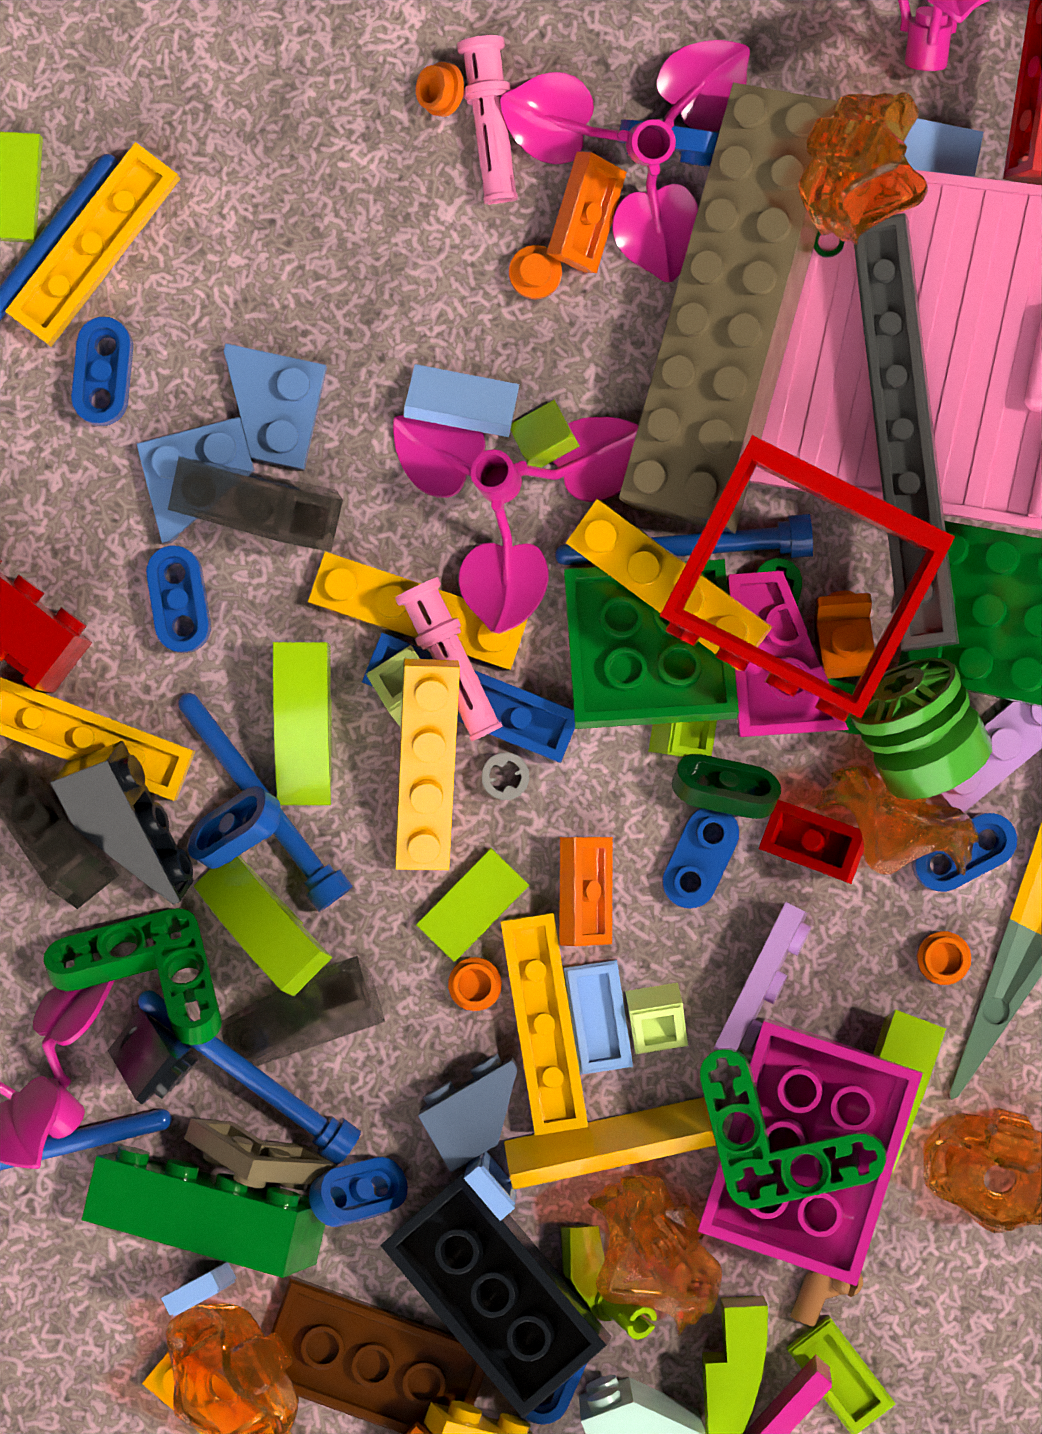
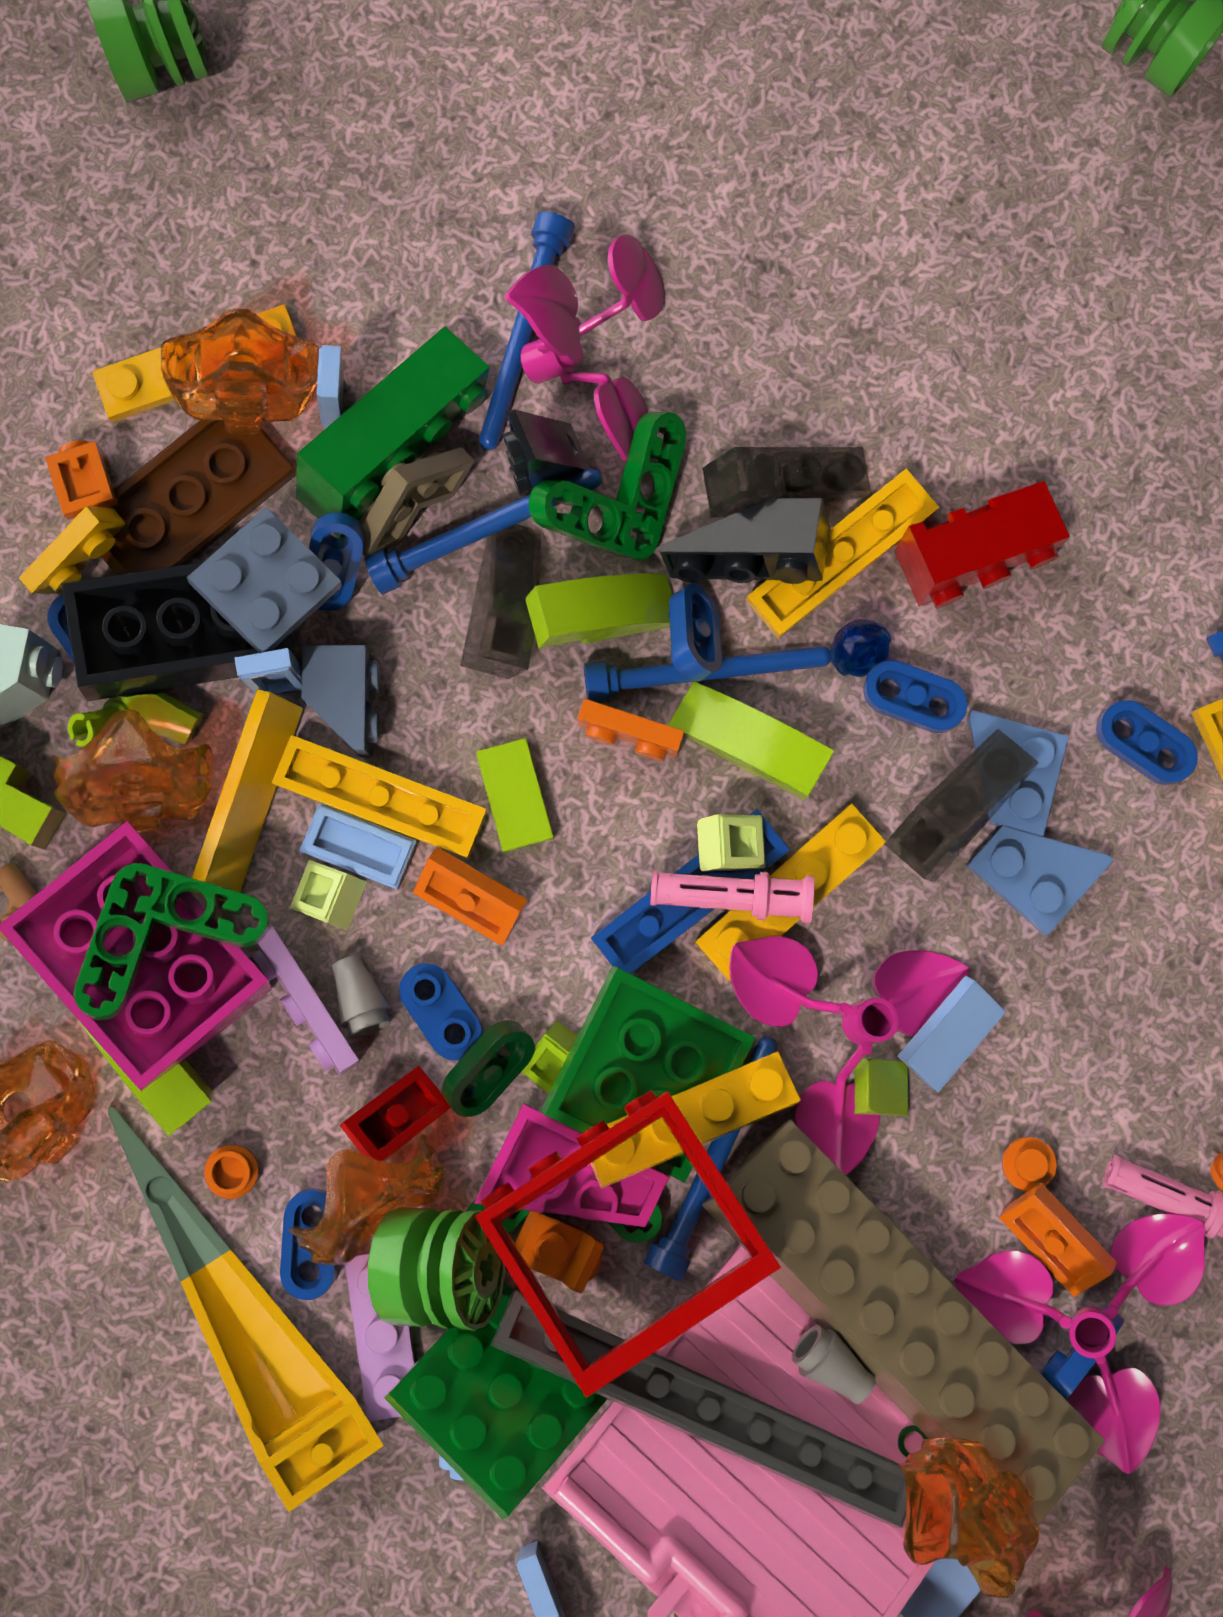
camera: 120 degrees right, 5 degrees down
(161, 673) = (859, 647): none -> clear blue plate
(353, 811) = (651, 738): none -> orange plate
(414, 1237) = (264, 581): none -> sand blue plate
(426, 764) = (656, 822): yellow plate -> none
(474, 984) = (447, 758): orange plate -> none
(501, 760) = (622, 888): light grey bush -> none
(732, 934) = (360, 1001): none -> light grey cone
(804, 346) = (831, 1363): none -> light grey cone

